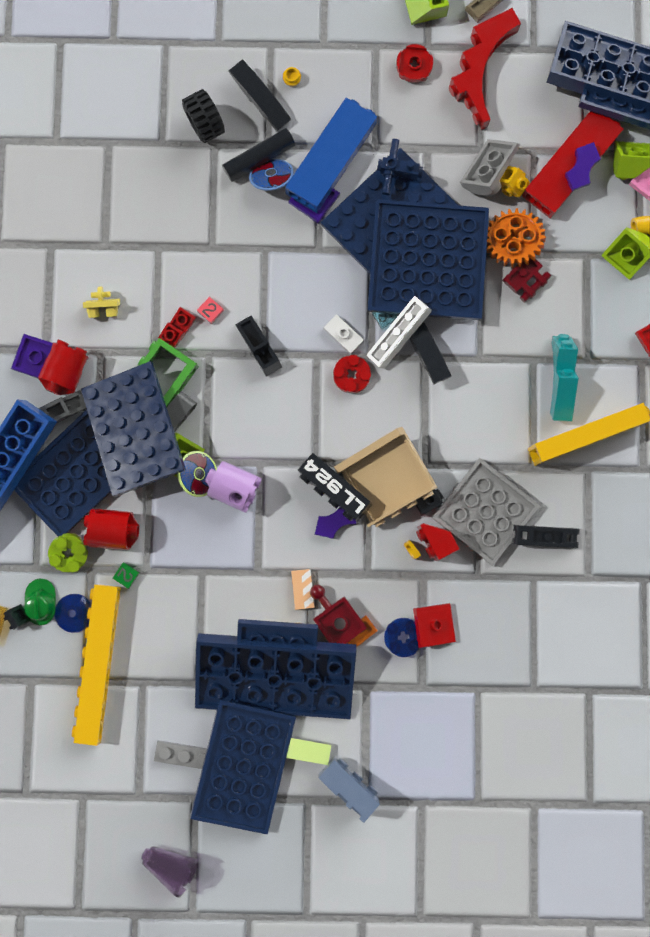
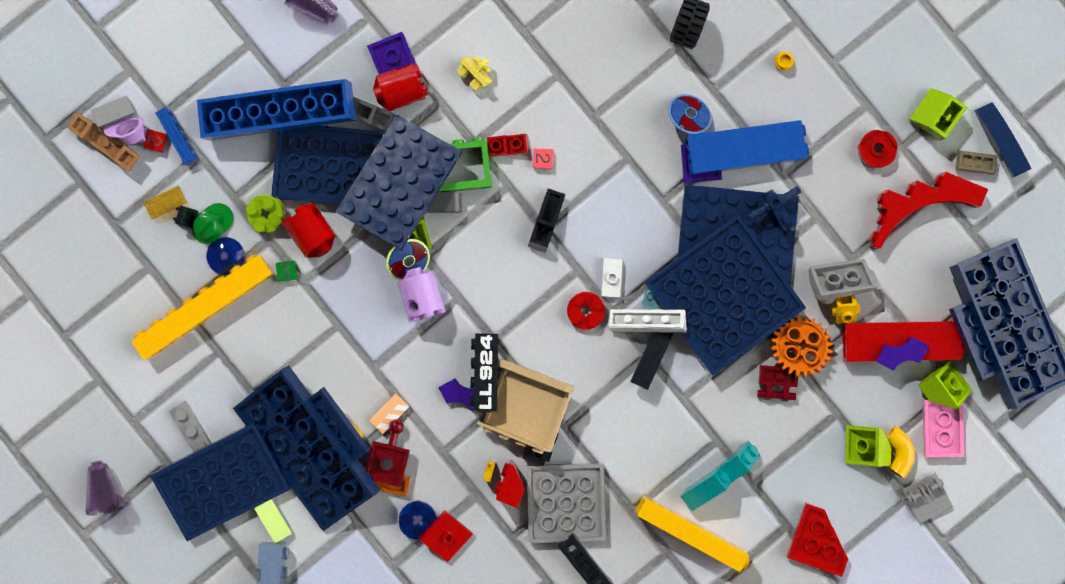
camera: 55 degrees right, 5 degrees up
(258, 154) = (697, 90): black brick -> none
(259, 94) = (746, 49): black slope -> none

